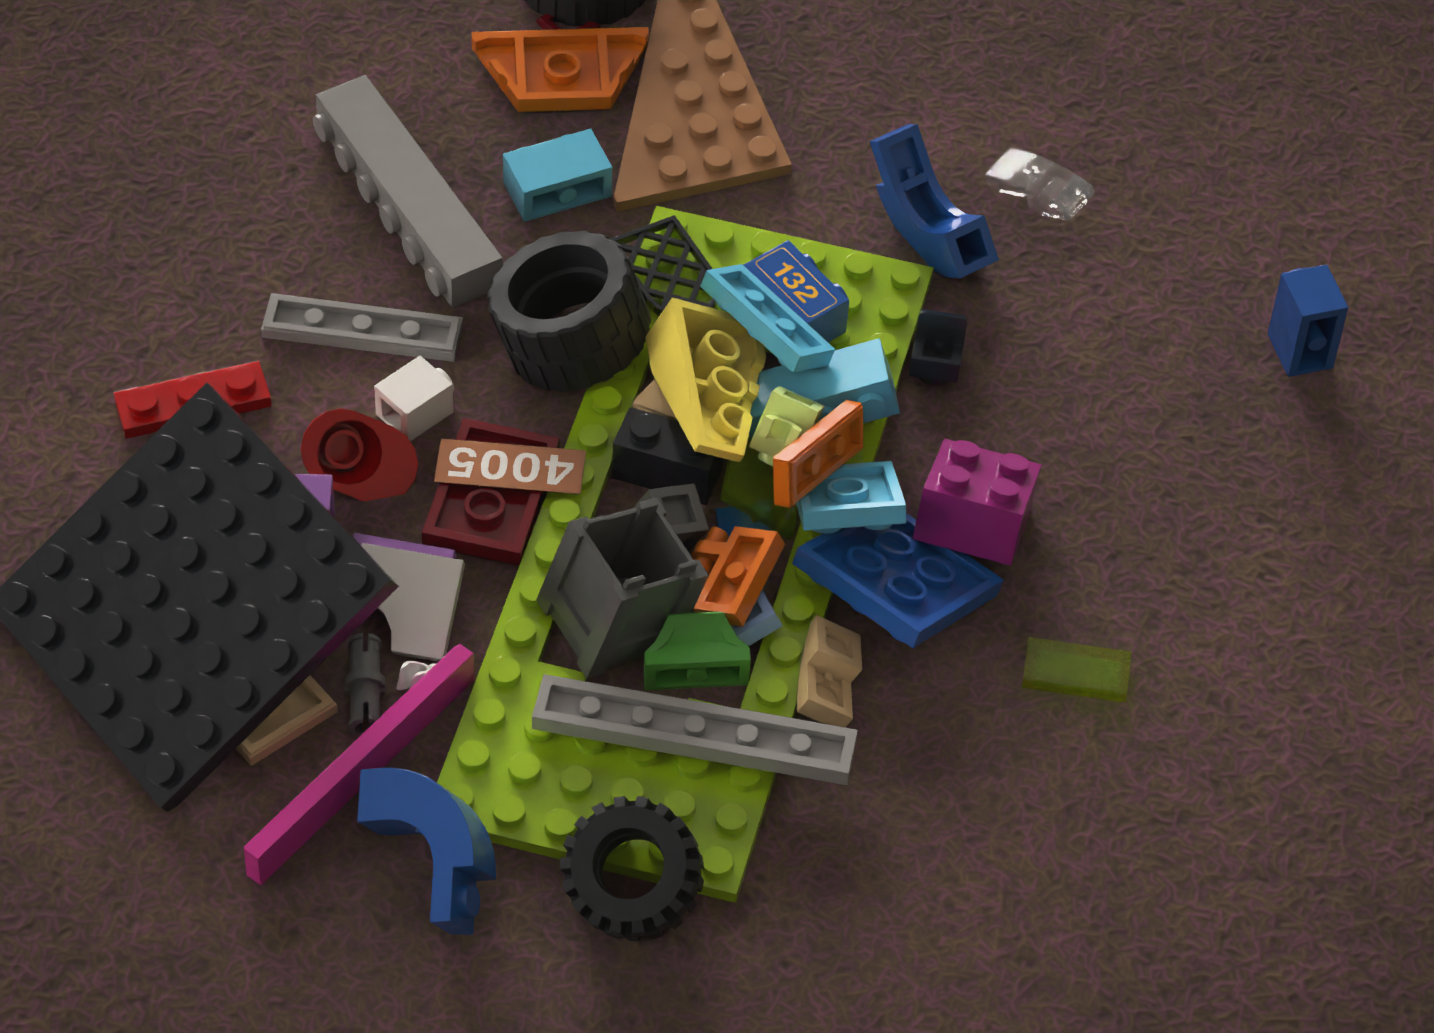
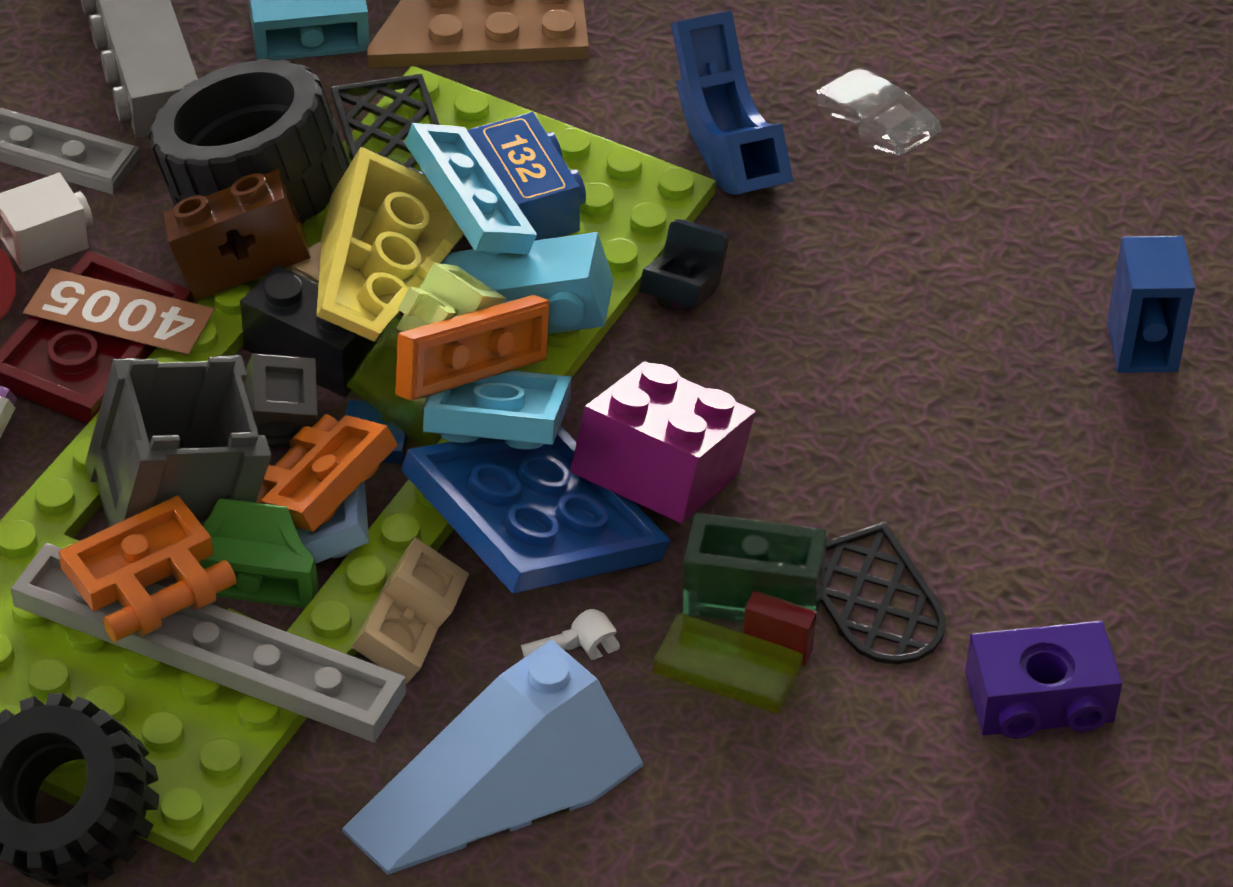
camera: 15 degrees right, 5 degrees down
(589, 387) = (219, 258): none -> reddish brown brick
(626, 671) = (139, 553): none -> orange plate
(948, 776) = (515, 754): none -> light blue wedge
(967, 663) = (586, 631): none -> white hand
(1080, 595) = (739, 555): none -> clear green brick
(1110, 631) = (780, 623): none -> dark red tile
(1147, 619) = (902, 562): none -> black window
(1314, 639) = (1043, 679): none -> dark purple brick

